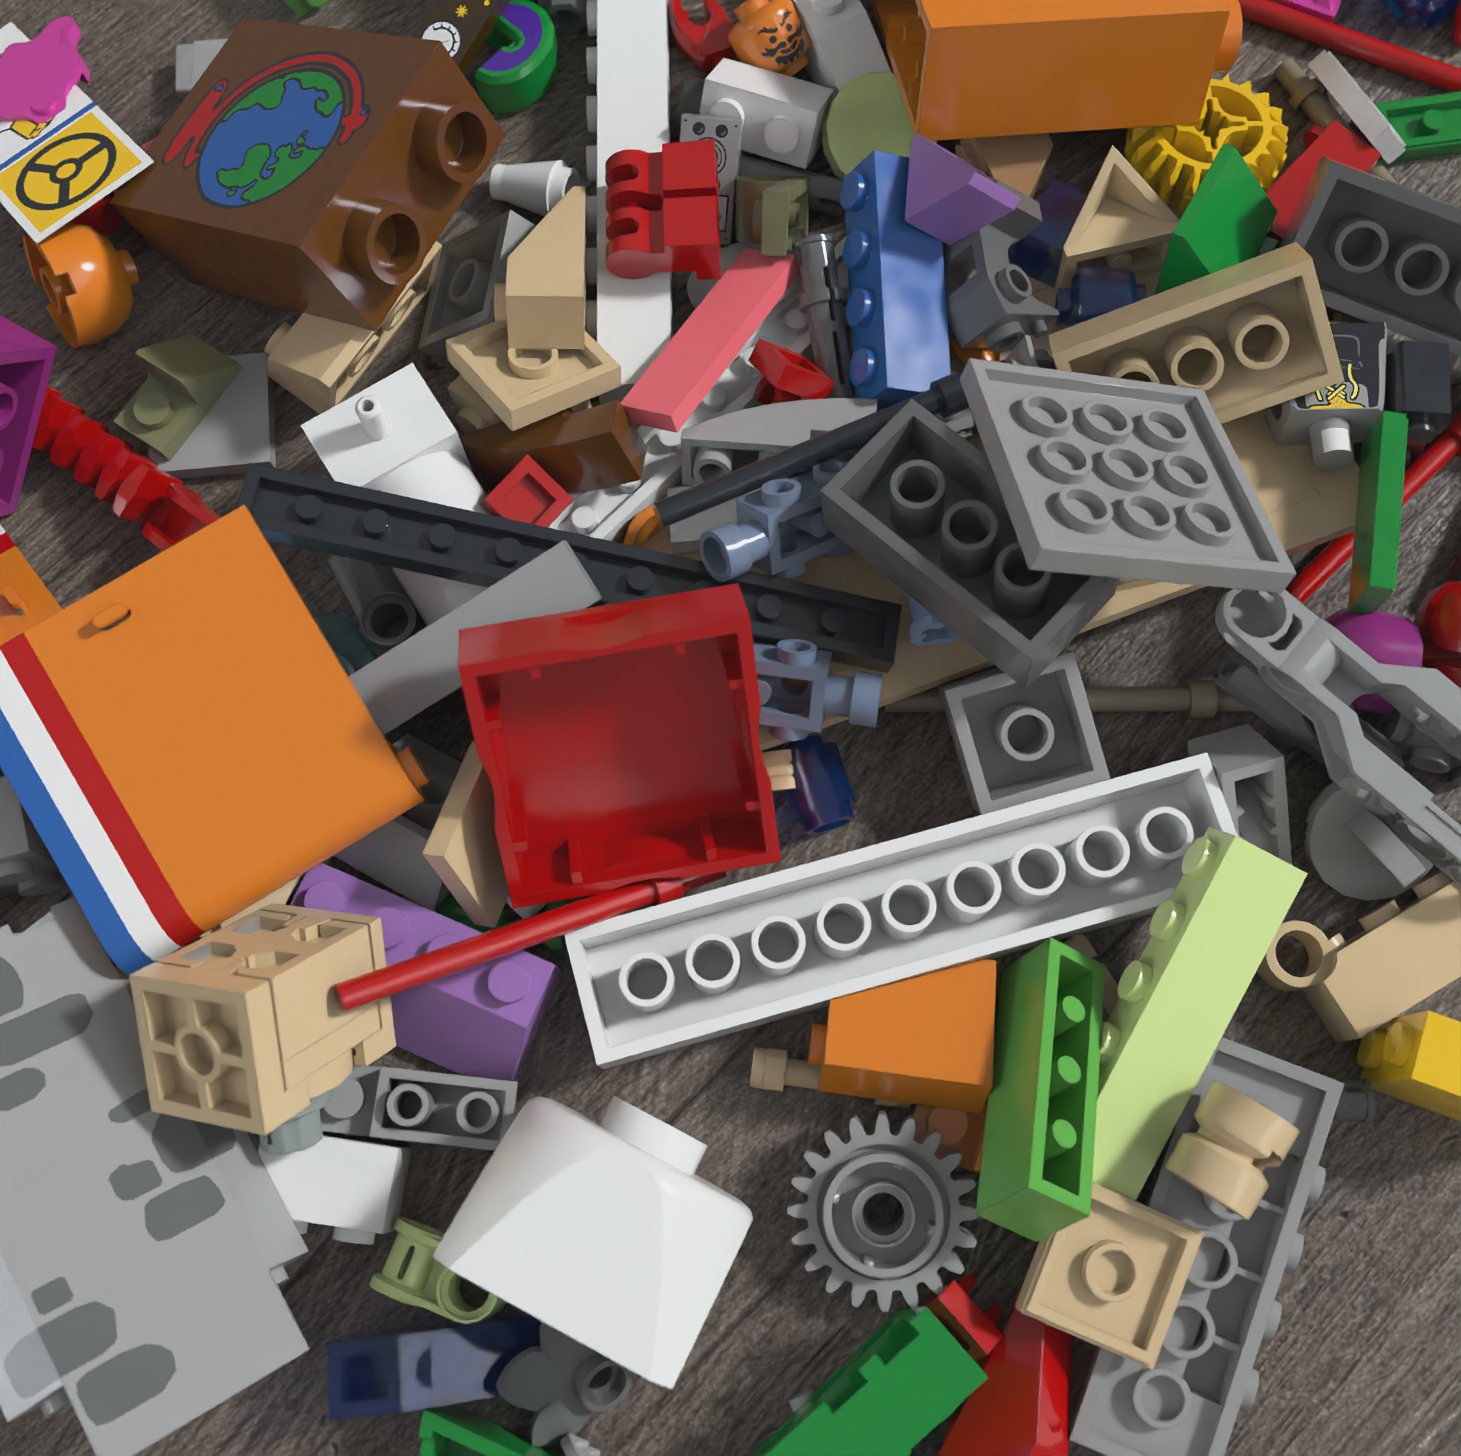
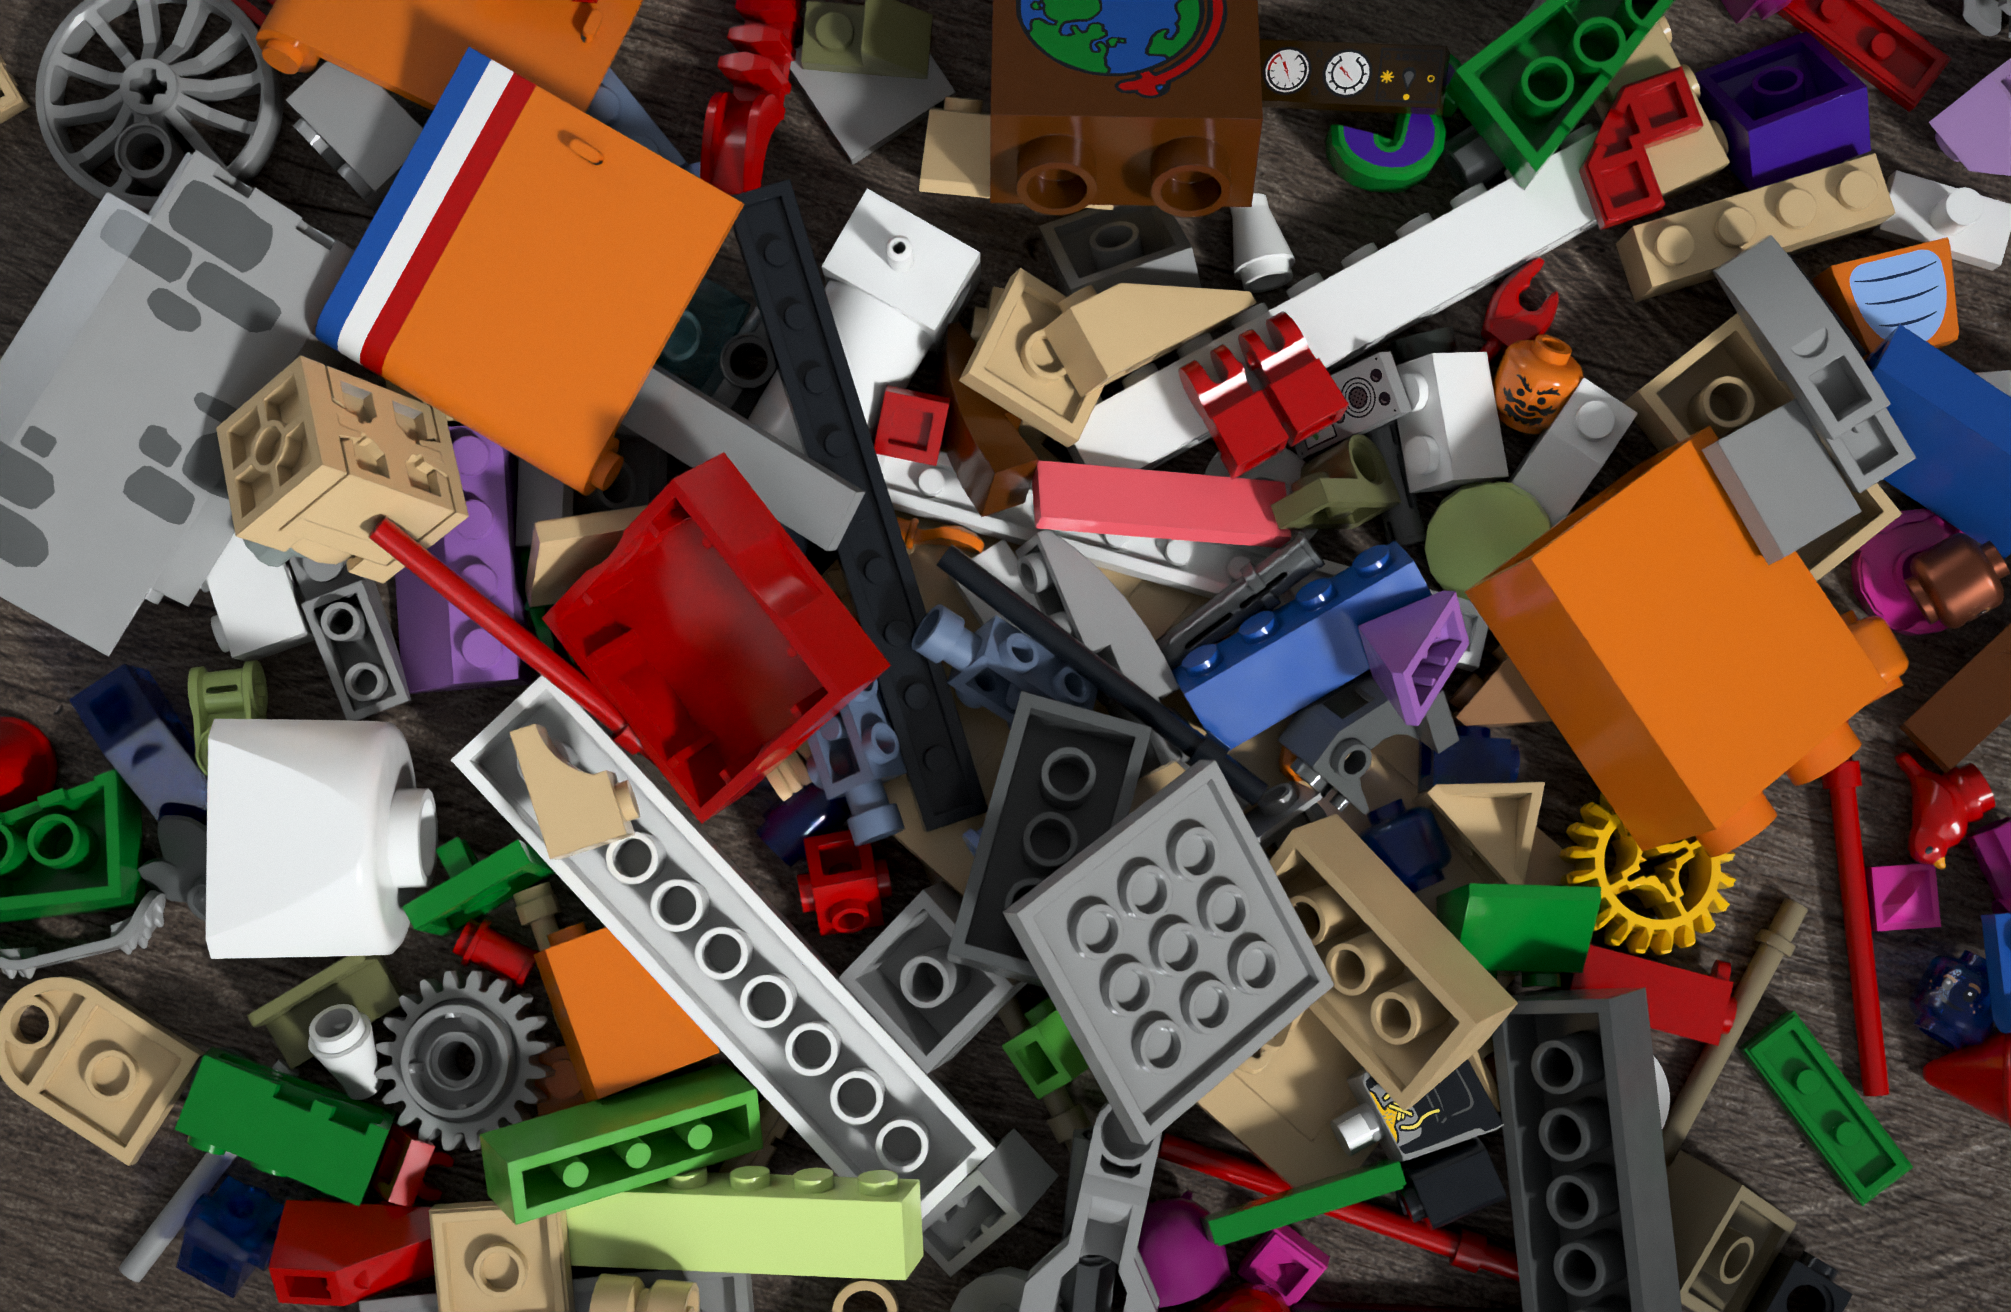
camera: 60 degrees right, 10 degrees up
(701, 962) = (572, 806): none -> tan arch
(725, 1103) = (475, 885): none -> green hinge
(767, 1321) = (352, 981): none -> olive panel
(787, 375) = (1165, 594): red tile -> none
(794, 1130) = (495, 952): none -> red pin
(815, 1321) = (346, 1048): none -> white cone
(894, 774) = (843, 884): none -> red brick
(1131, 663) = (1045, 1051): none -> bright green brick
(1358, 106) = (1771, 998): white tile -> none
(1416, 576) = (1285, 1263): none -> dark pink tile

